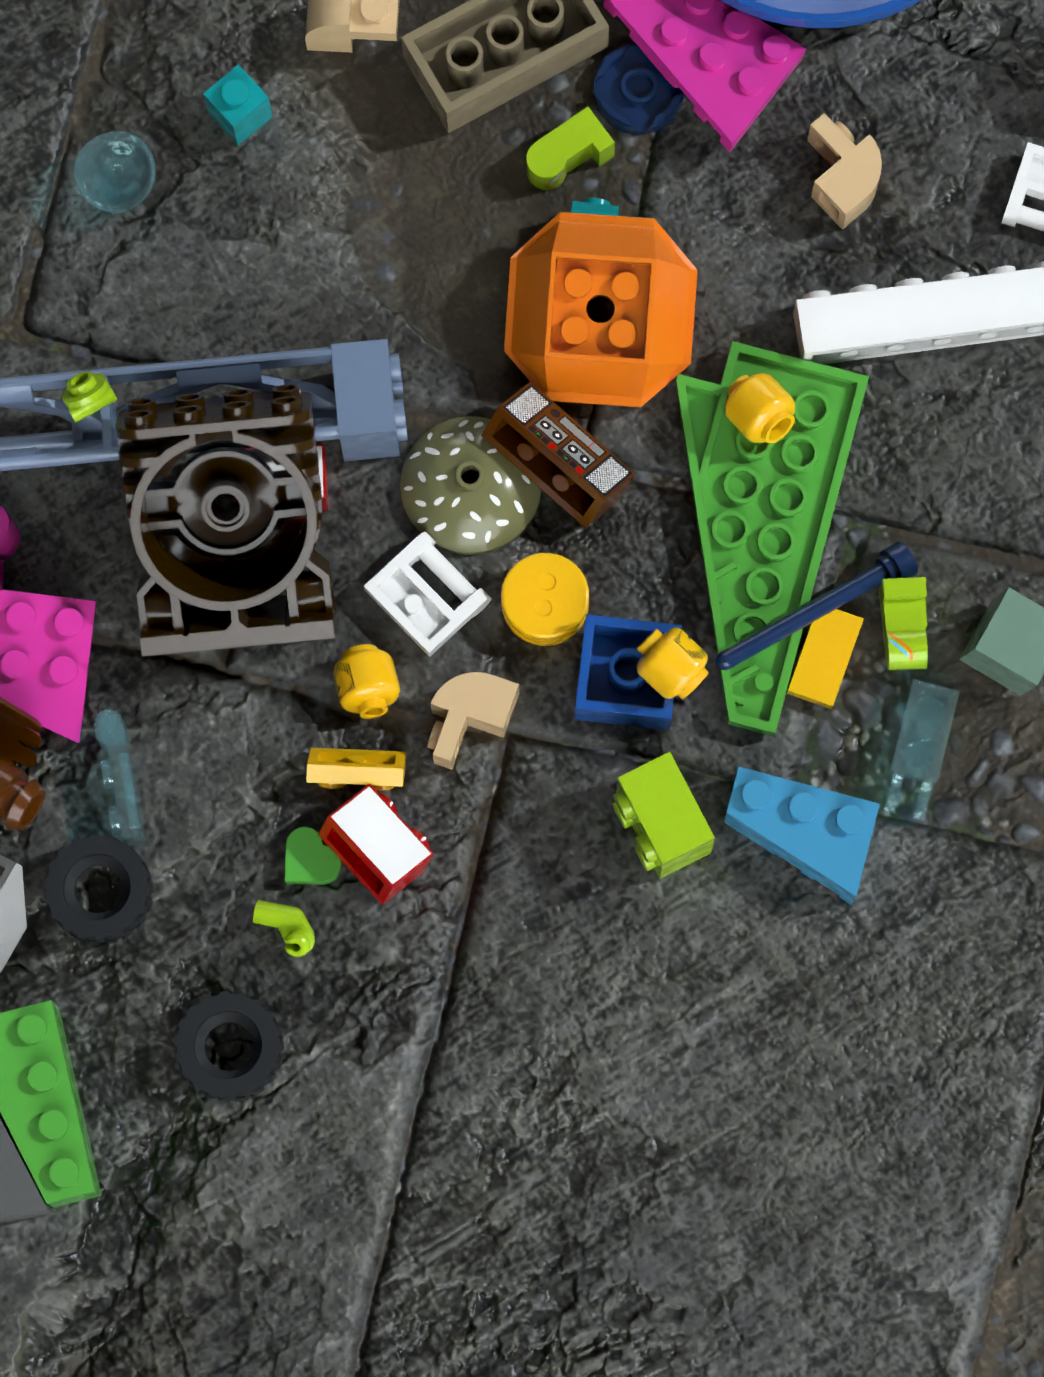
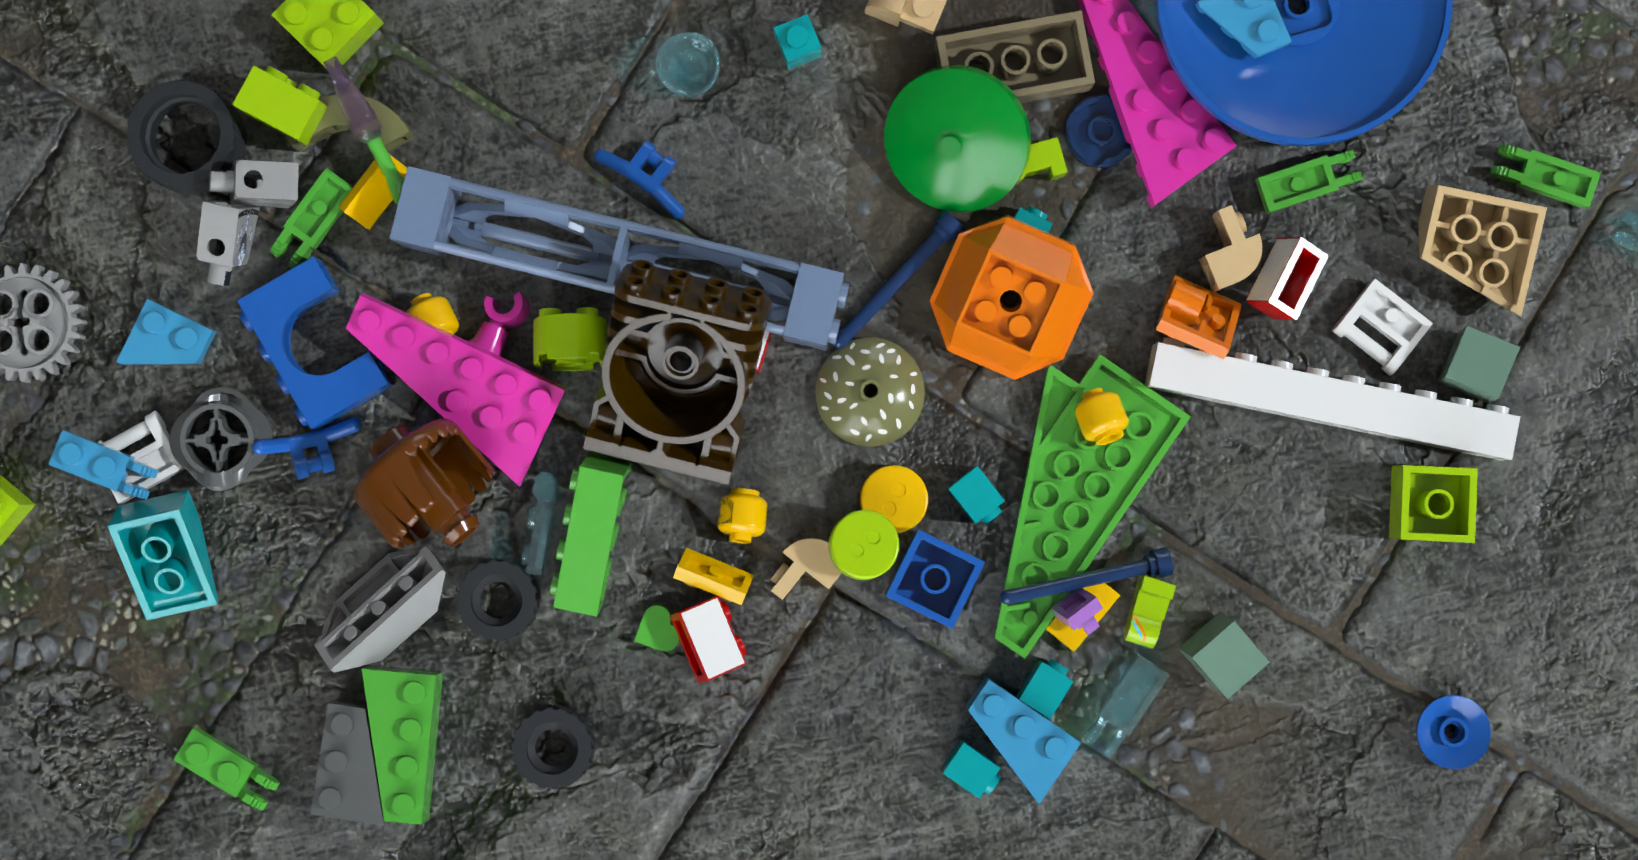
camera: 15 degrees right, 10 degrees up
(81, 541) = (569, 339): none -> lime brick
(87, 394) = (607, 239): lime plate -> none
(116, 329) = (649, 184): none -> blue piece
(186, 767) = (590, 533): none -> bright green wedge
(291, 924) = (628, 672): lime arm -> none
(416, 604) = (798, 469): white plate -> none
(468, 146) = (957, 138): none -> green dish
(492, 263) = (944, 230): none -> dark blue piece
(526, 656) = (863, 545): none -> lime head
(558, 454) = (941, 396): reddish brown brick -> none
(644, 559) = (976, 496): none -> teal brick
(663, 816) = (922, 695): lime brick -> none
(672, 663) = (967, 592): yellow head -> none
(759, 891) = (971, 769): none -> teal brick
(814, 755) = (1045, 687): none -> teal brick
(818, 649) = (1078, 610): none -> medium lavender tile
(834, 255) = (1199, 317): none -> orange plate
(903, 62) = (1304, 182): none -> bright green hinge
(922, 176) = (1287, 278): none -> red brick

